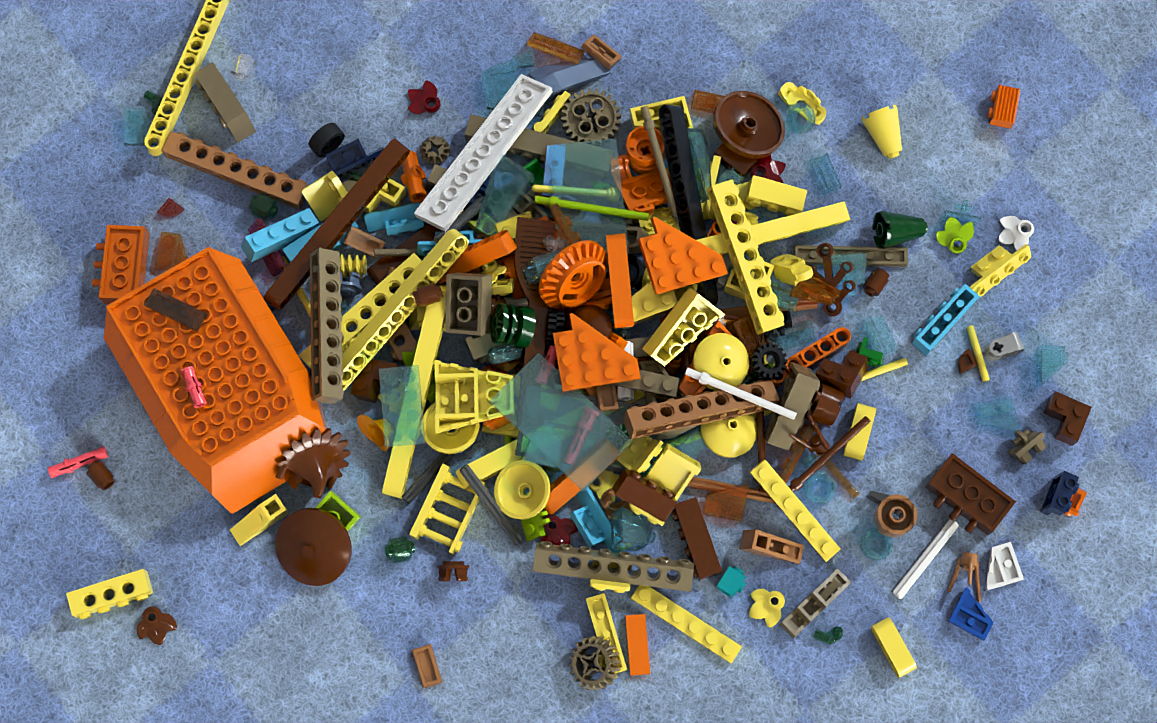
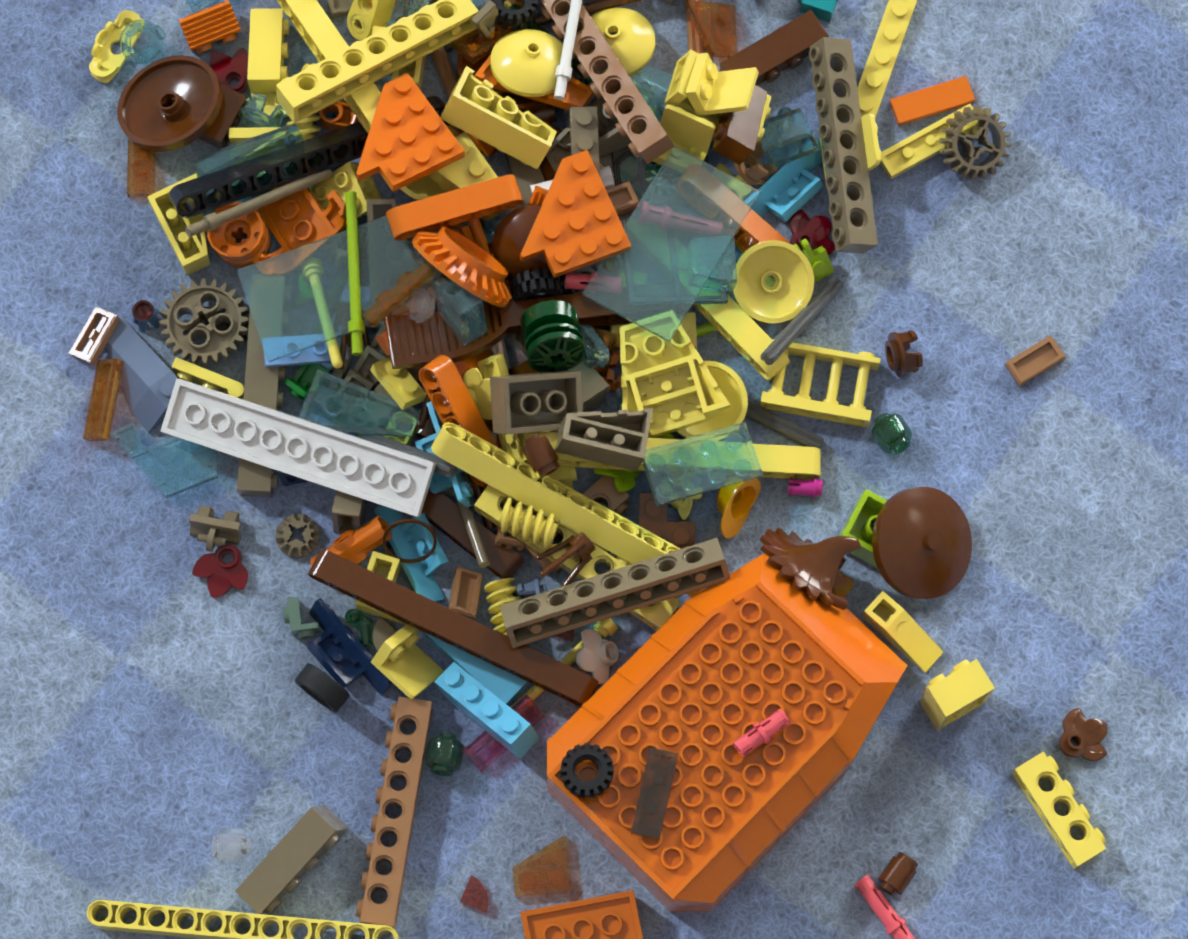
camera: 105 degrees left, 0 degrees up
(193, 261) = (582, 753): none -> black tyre
(200, 539) = (956, 694): none -> light yellow brick
(297, 314) = (596, 655): none -> white plate
(364, 312) = (577, 548): none -> reddish brown plant
(378, 482) = (805, 487): none -> dark pink pin
(380, 135) = (293, 615): none -> sand green bracket
(387, 281) = (528, 523): none -> light yellow piece
(395, 209) = (410, 521): none -> reddish brown piece
(430, 342) = (606, 437): none -> dark tan wedge
(456, 93) = (214, 530): none -> dark tan hips
(607, 81) = (144, 313): none -> clear red piece
(667, 482) = (719, 91): none -> light yellow bracket
(757, 336) = (486, 18): none -> dark tan tile
(801, 162) = (209, 26): none -> orange brick

